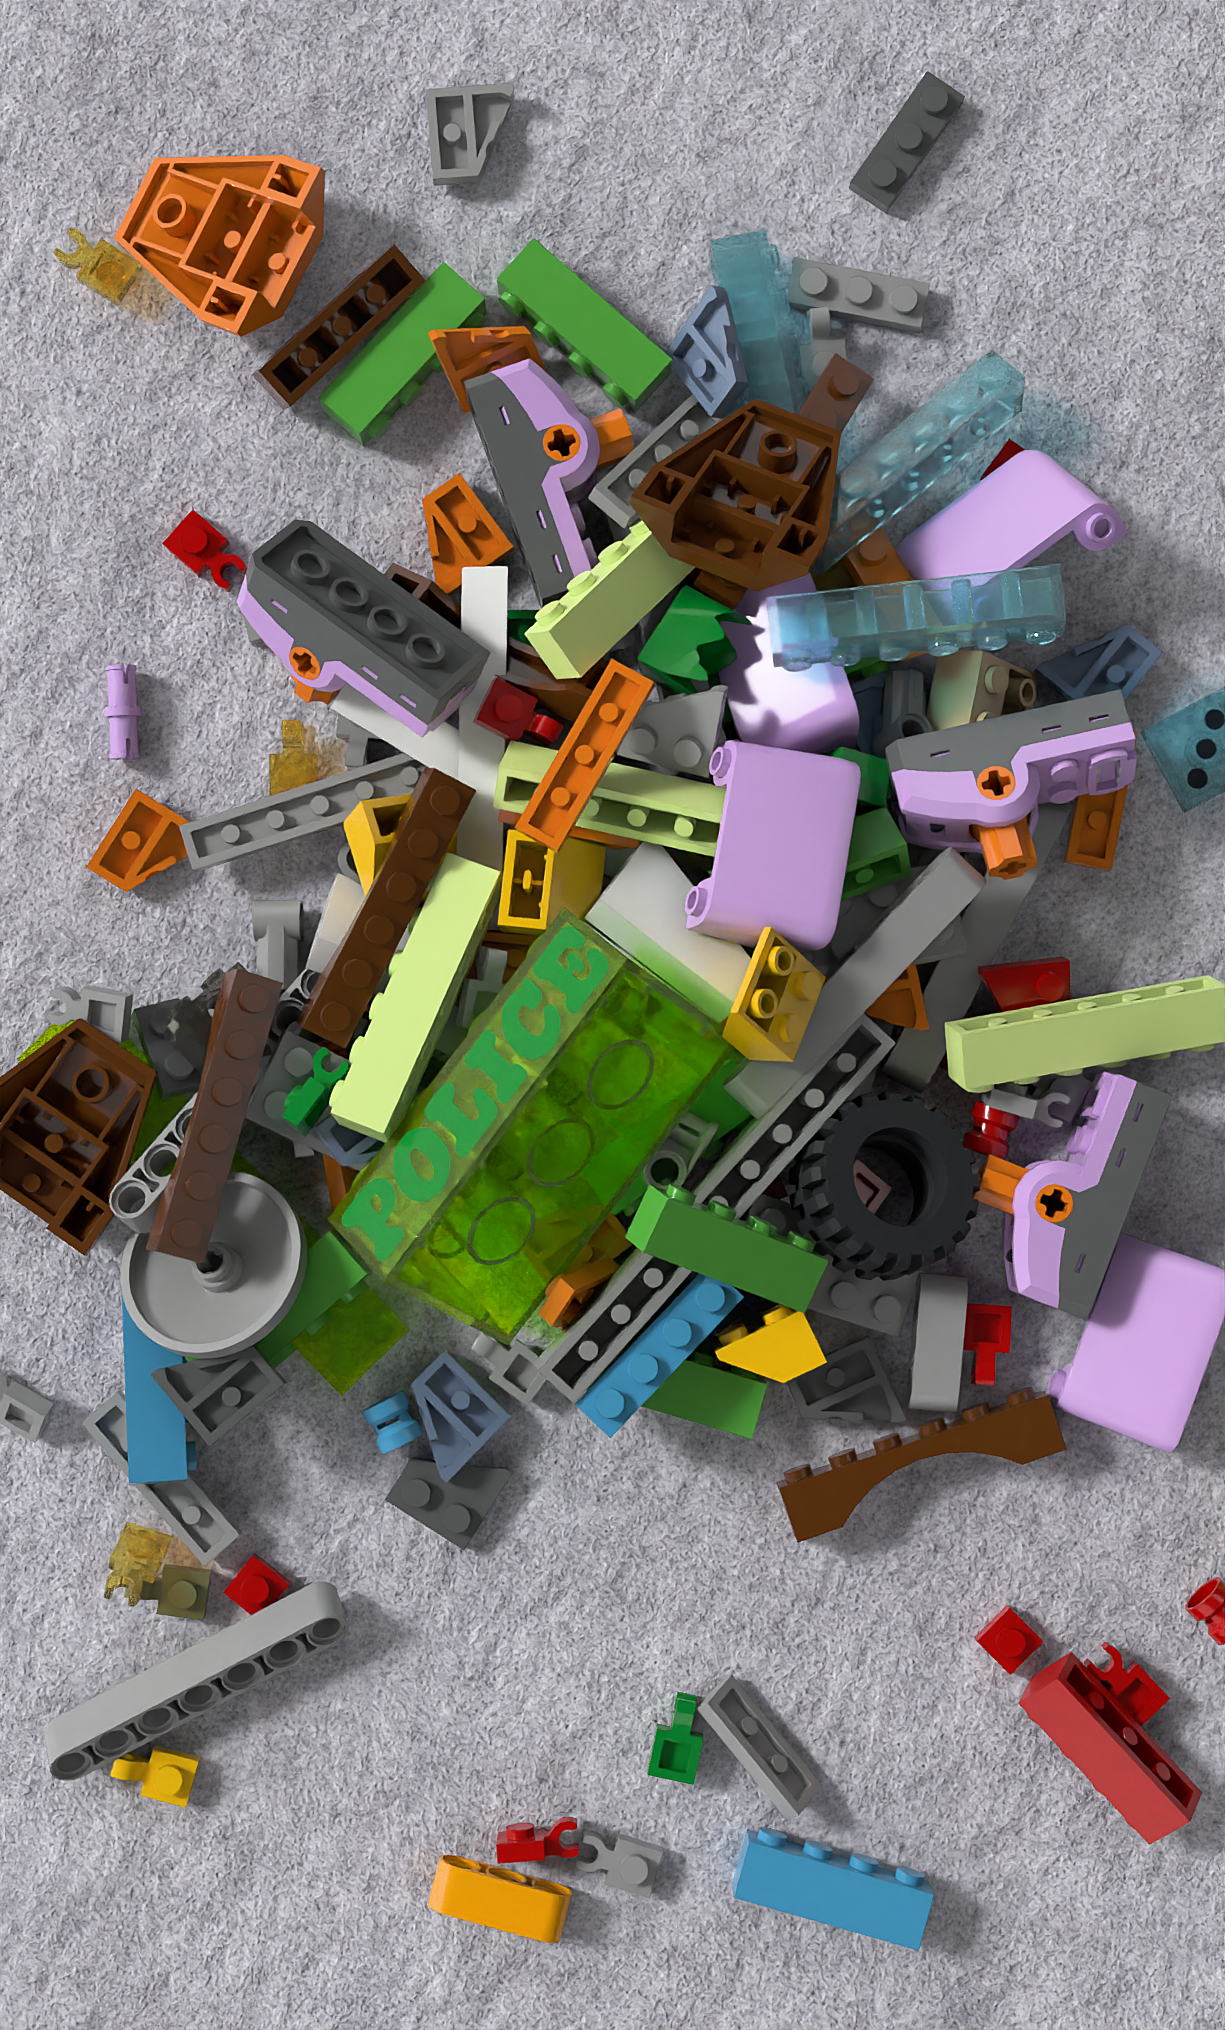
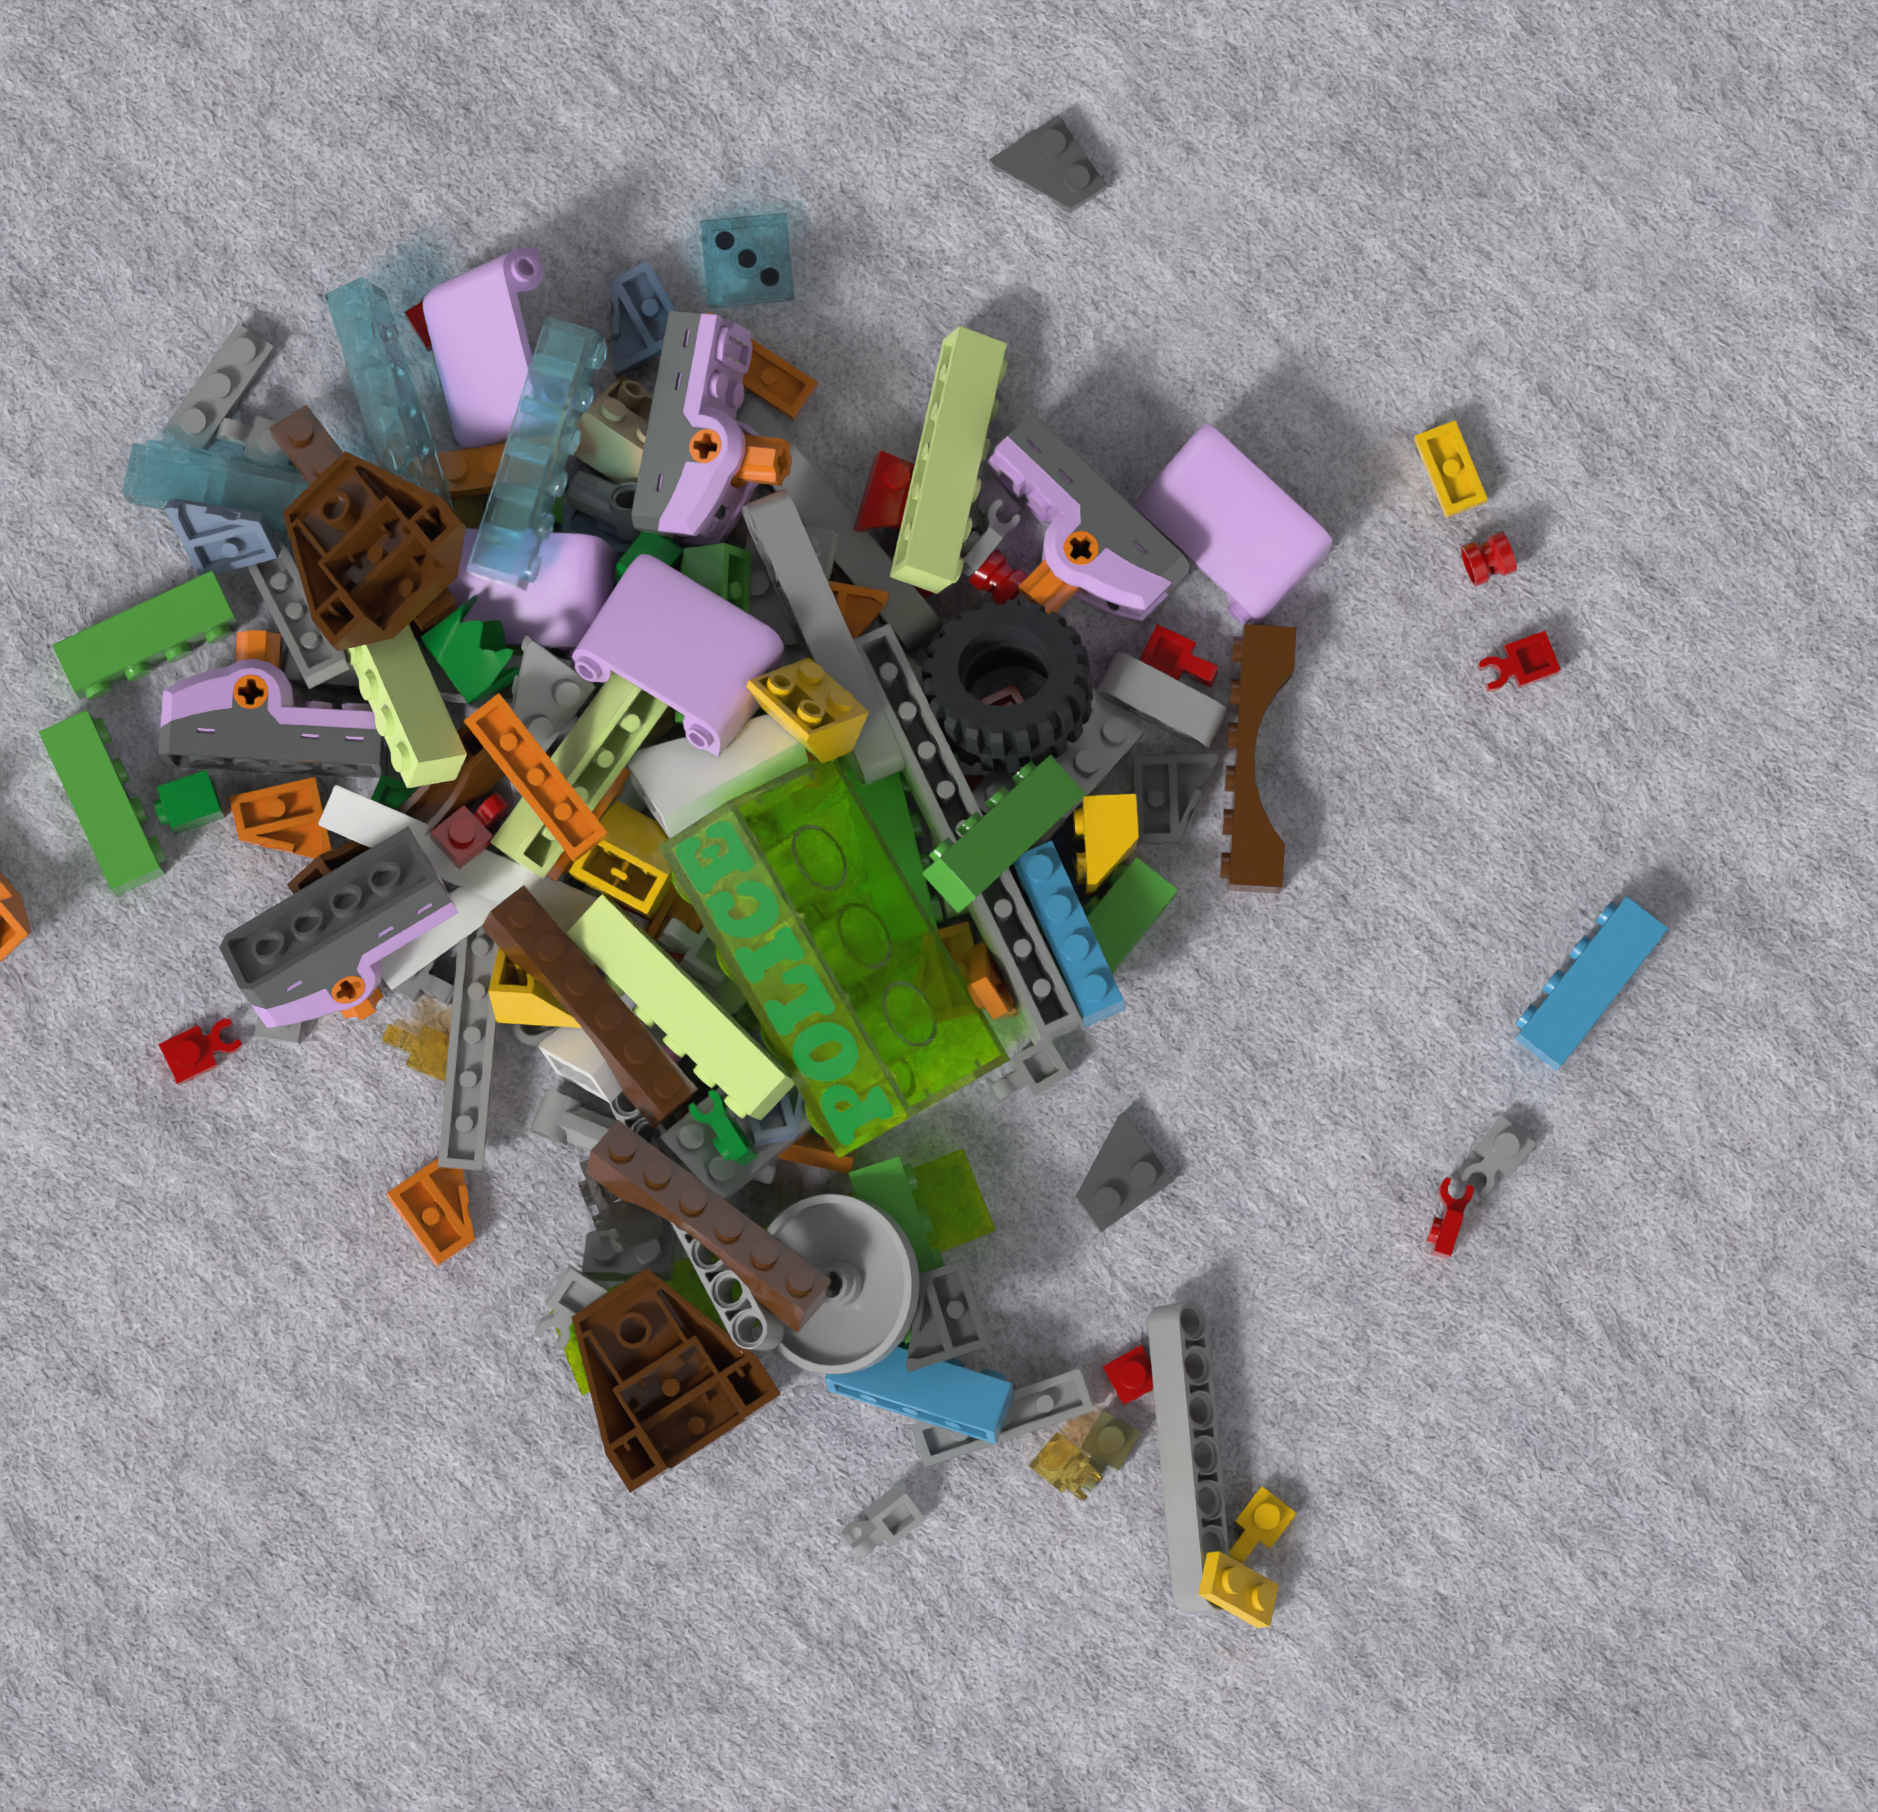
camera: 70 degrees left, 5 degrees down
(81, 1784) = (1238, 1589): none -> yellow plate
(122, 712) = (312, 1179): lavender pin -> none
(338, 327) = (55, 848): reddish brown brick -> none
(398, 1431) = (1046, 1192): dark azure wheel -> none
(438, 437) = (188, 802): none -> green brick
(455, 1413) = (1051, 1139): sand blue wing -> none
(477, 351) = (136, 733): orange wing -> none
(500, 1898) = (1485, 1271): light orange beam -> none
(676, 1747) = (1418, 1068): green plate -> none
(682, 1148) = (905, 843): light grey piece -> none
(759, 1747) = (1445, 995): light grey plate -> none
(906, 142) = (103, 290): dark grey plate -> none
(1008, 1639) = (1442, 747): red plate -> none
(1110, 1748) = (1565, 697): red brick -> none

